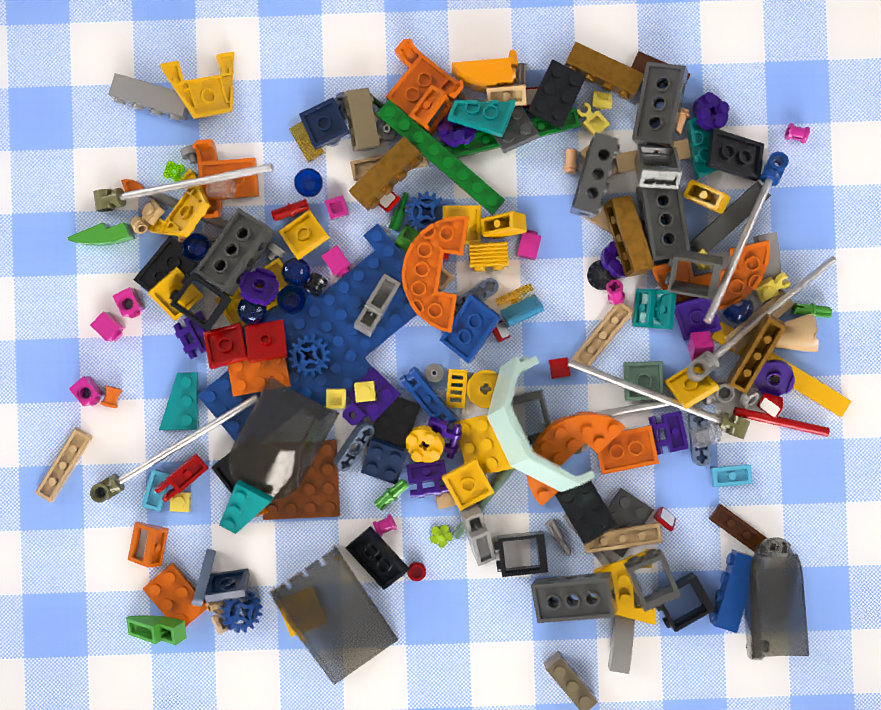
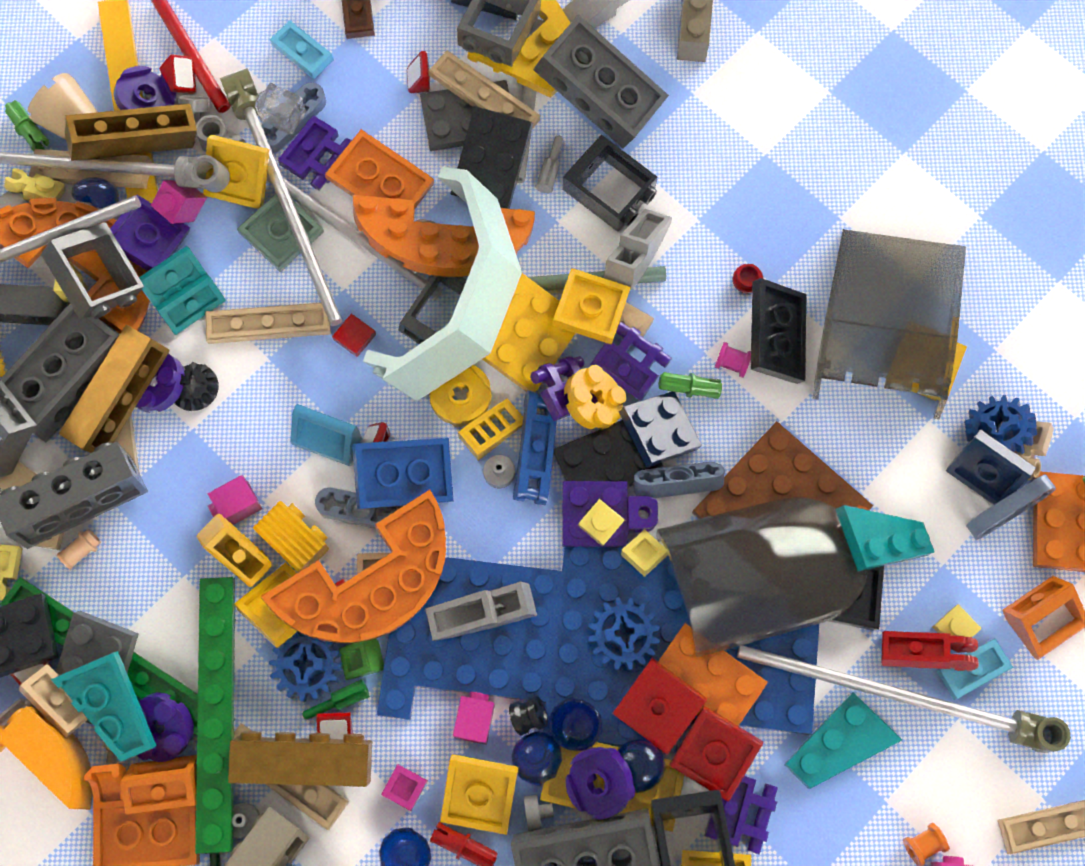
camera: 135 degrees left, 15 degrees down
(440, 535) = (680, 290): lime plant -> none
(514, 296) = (314, 462): clear yellow plate -> none
(615, 290) = (191, 350): dark pink bush -> none

